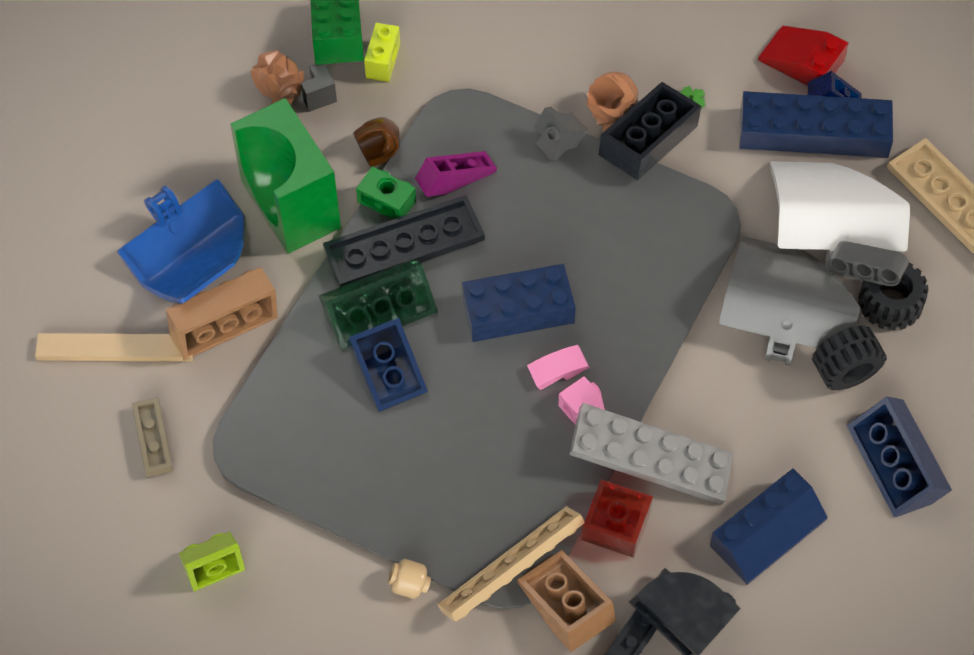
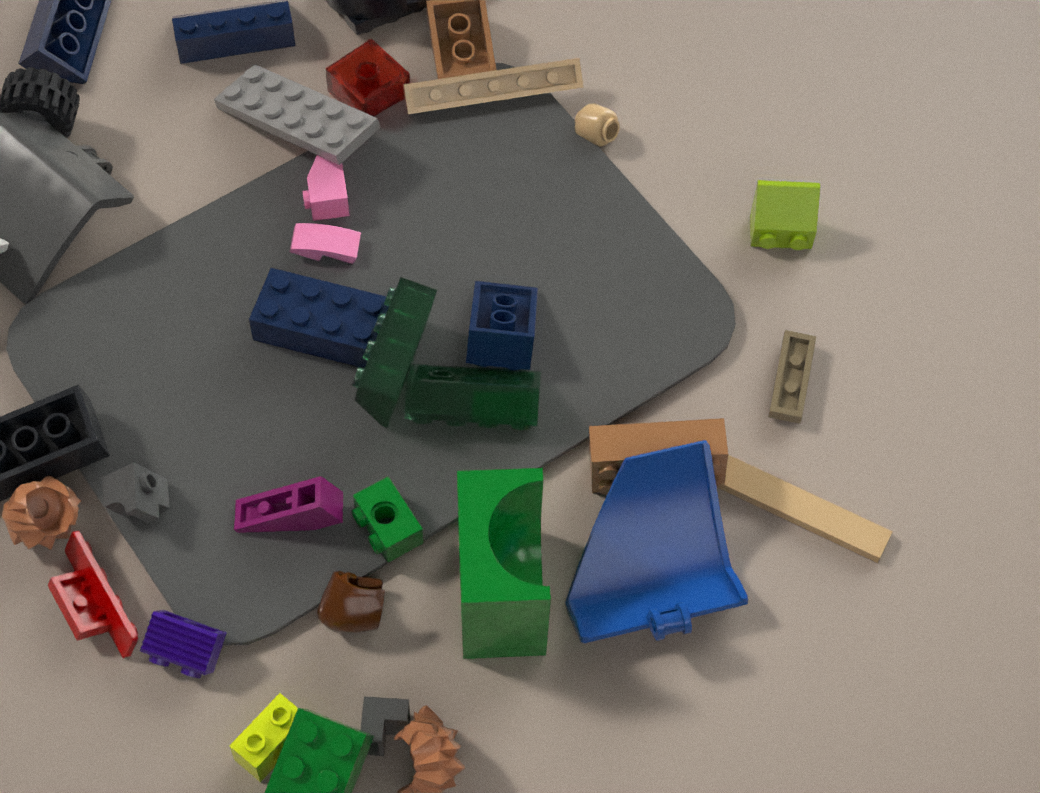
camera: 155 degrees left, 0 degrees up
(409, 237) = (405, 451): black plate -> none
(445, 288) = (394, 348): none -> clear green slope
(469, 74) = (183, 643): none -> dark purple brick
(548, 72) = (89, 600): none -> red bracket

